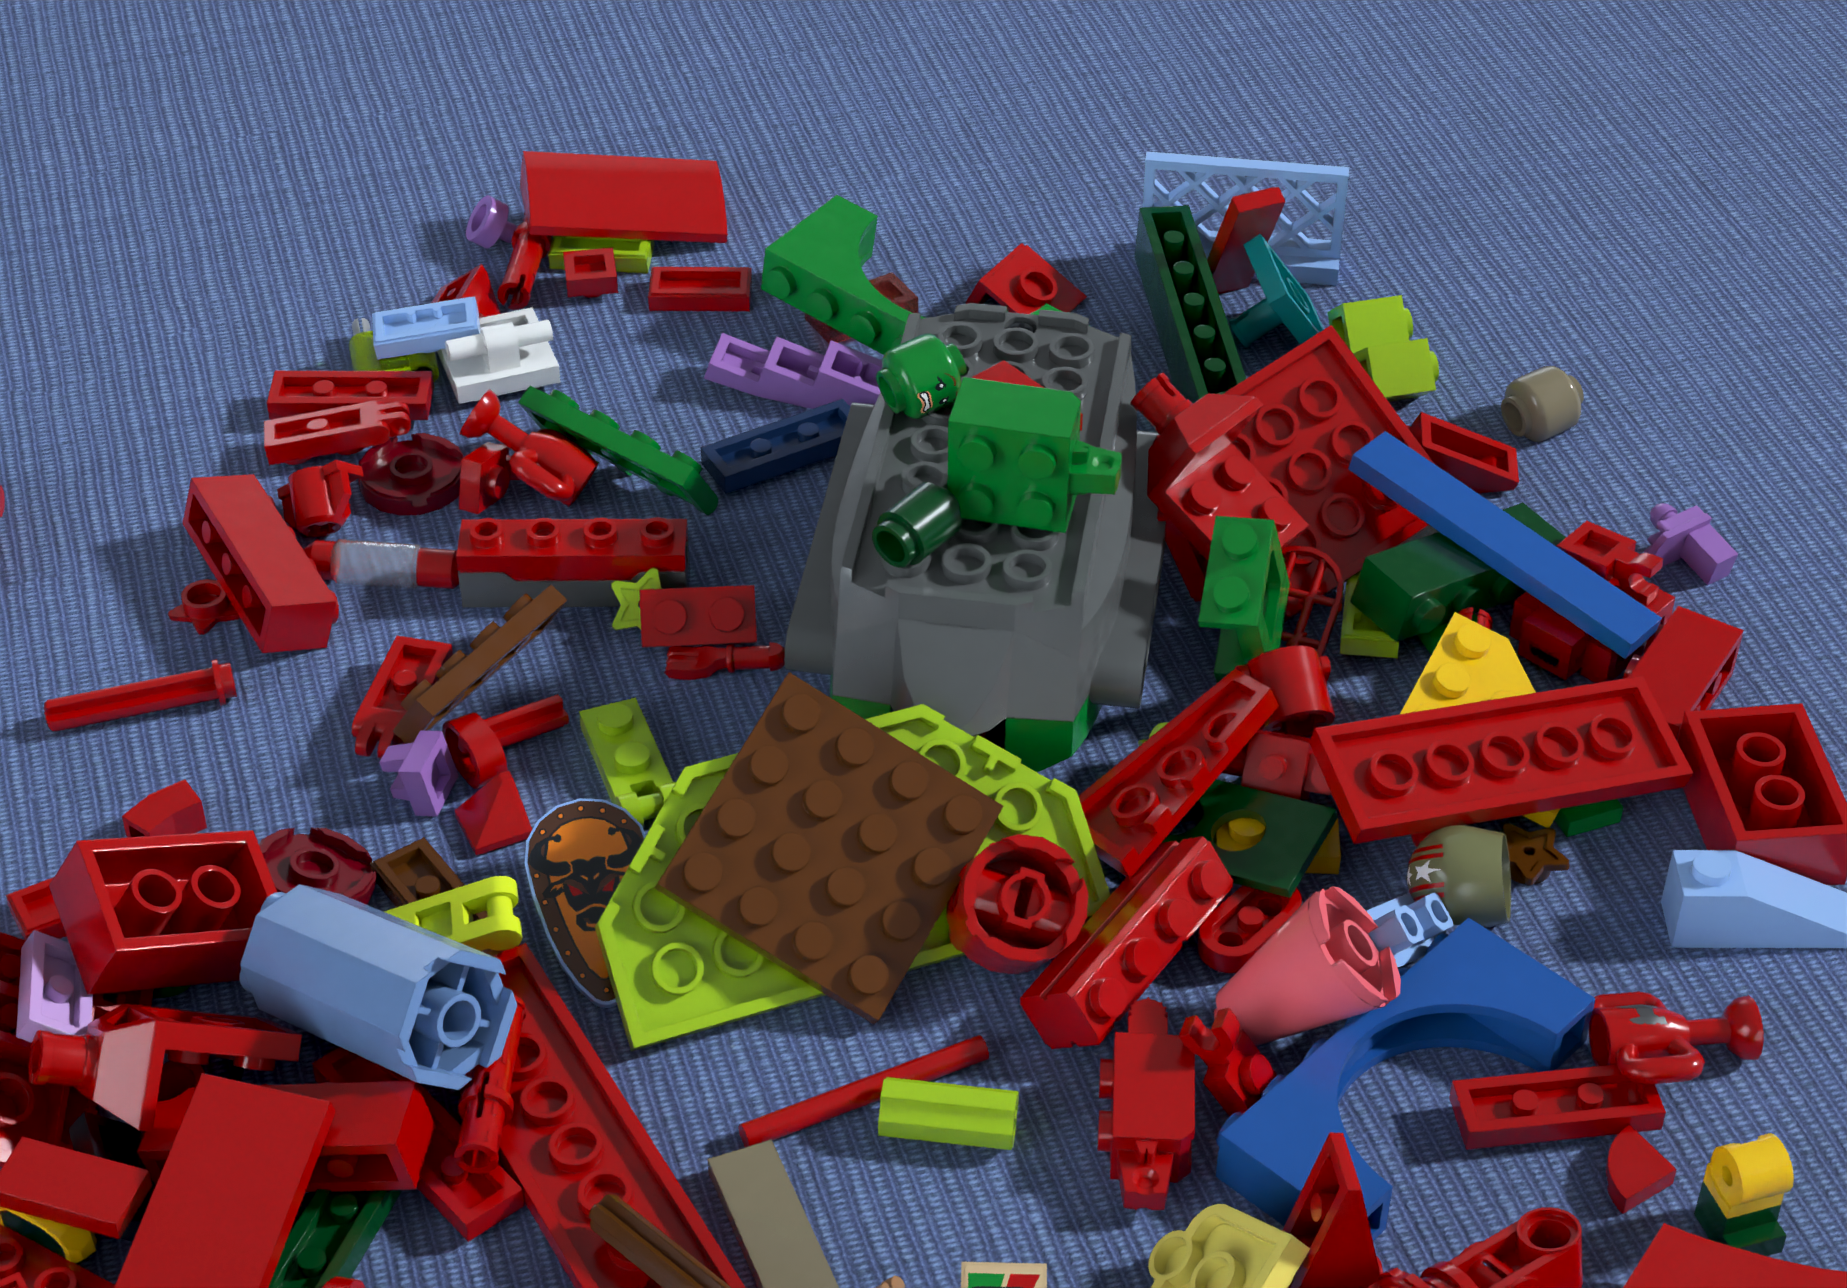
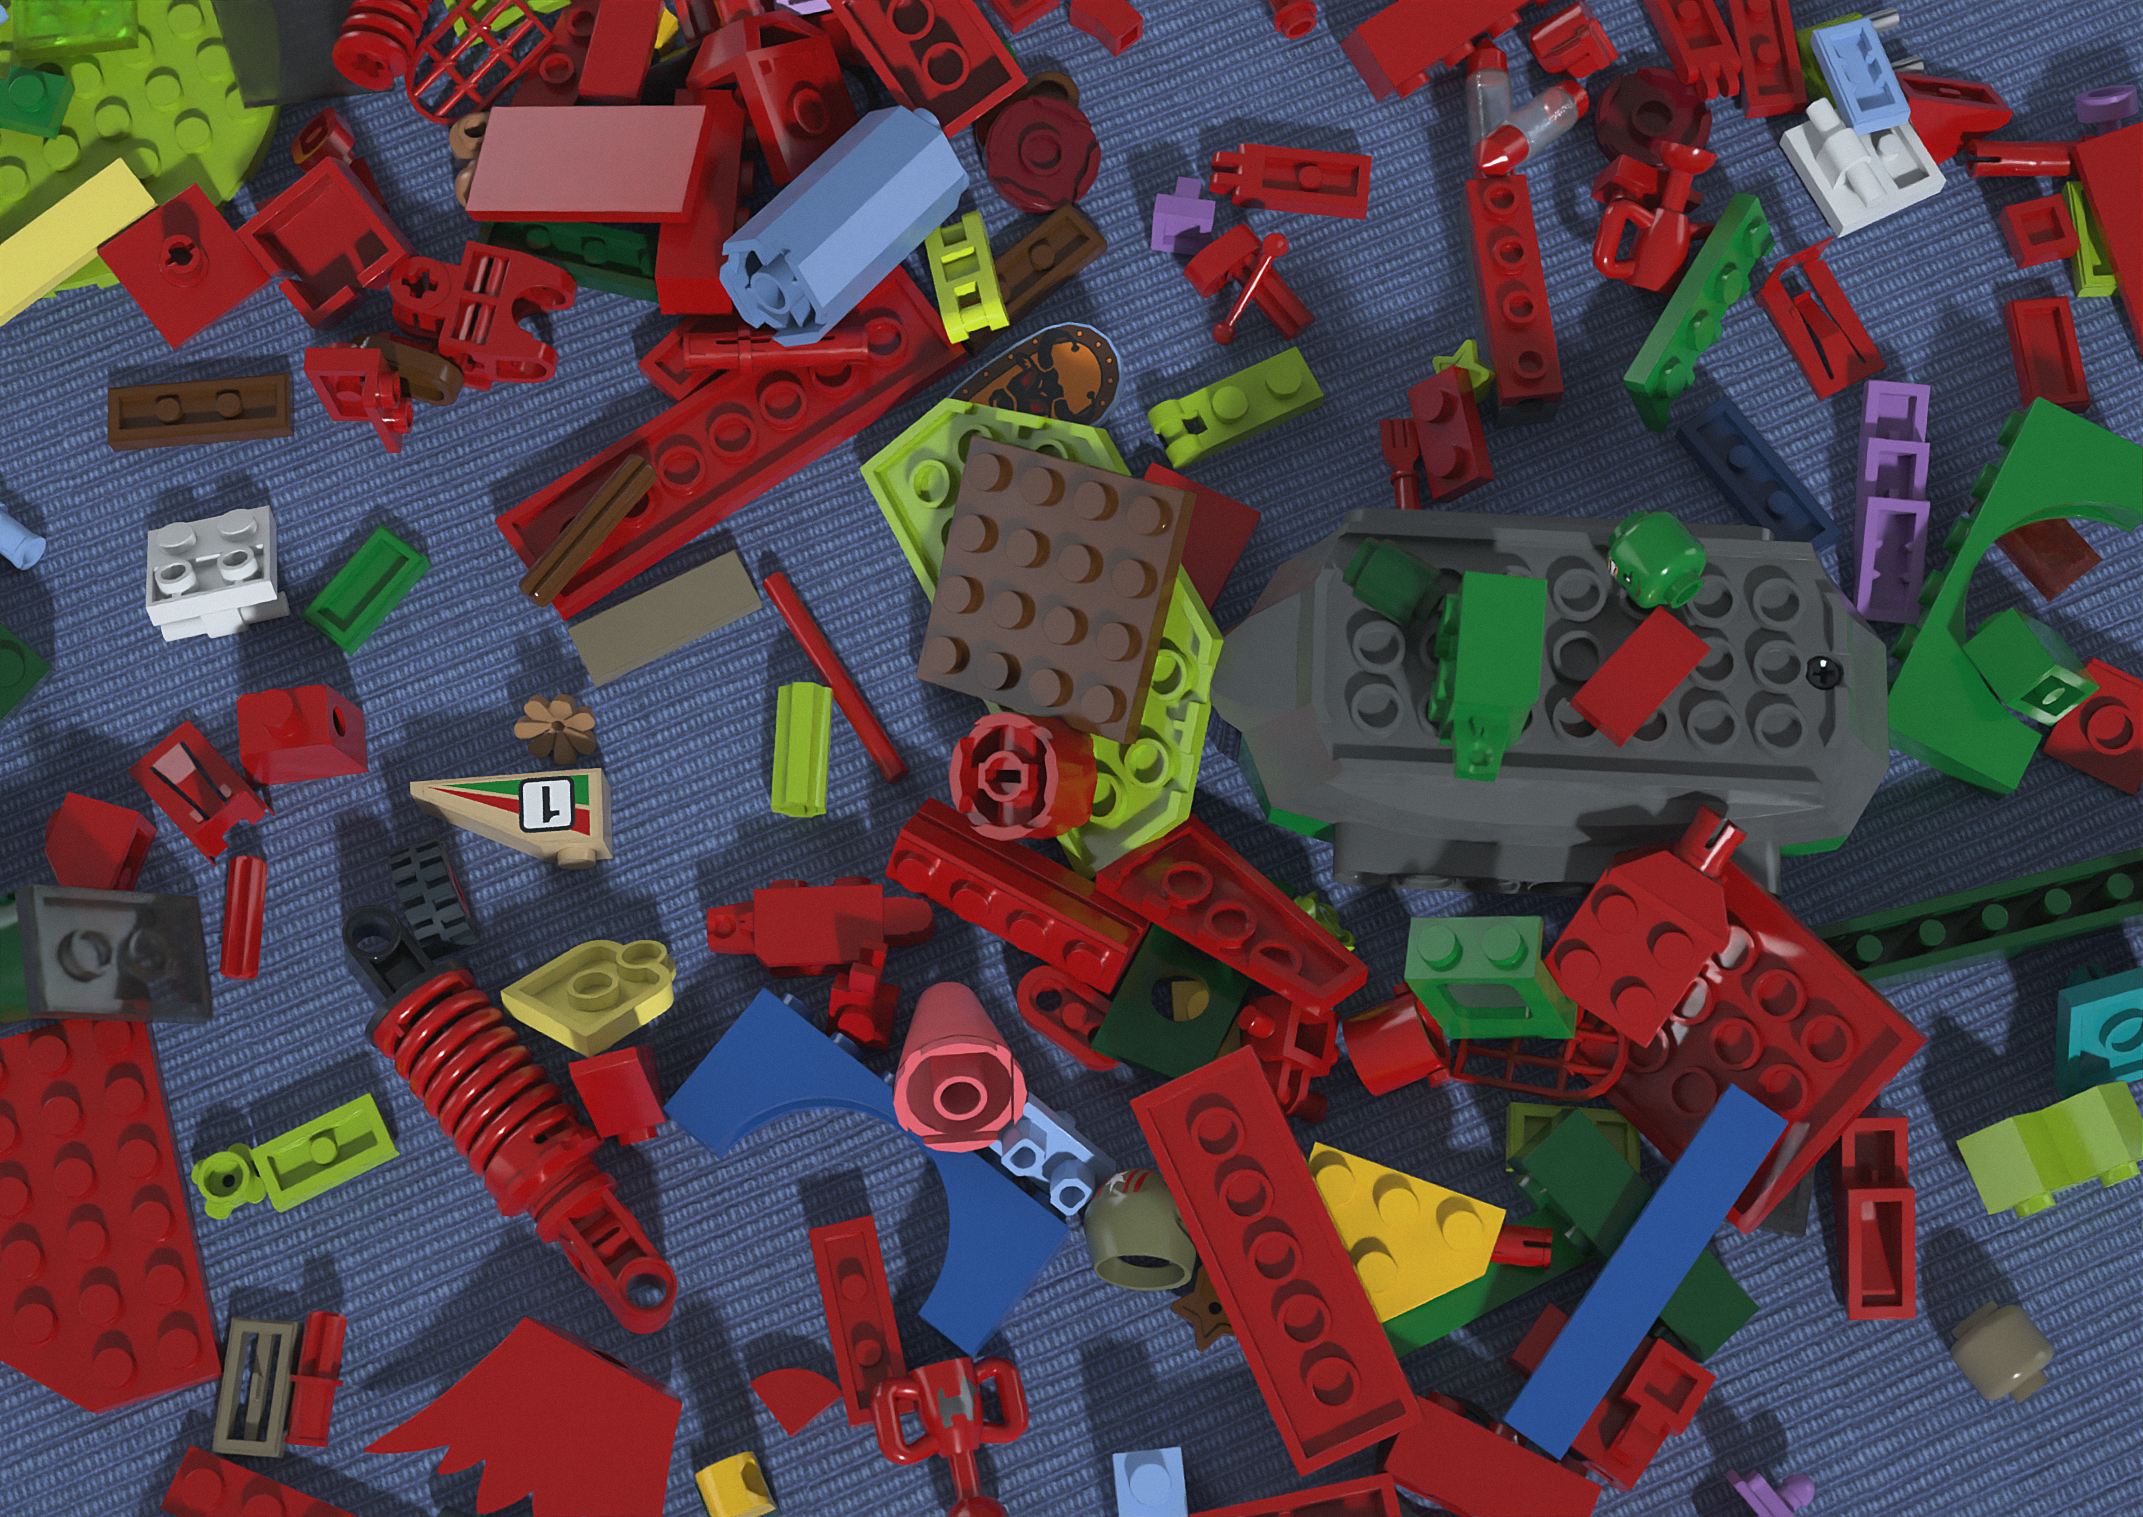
camera: 85 degrees right, 30 degrees up
(408, 525) = (1531, 128): none -> piece
(465, 674) = (1356, 246): reddish brown plate -> none
(484, 690) = (1274, 246): none -> red hinge
(494, 816) = (1147, 299): red slope -> none
(626, 410) = (1786, 316): none -> red piece
(991, 282) = (2029, 666): none -> green brick

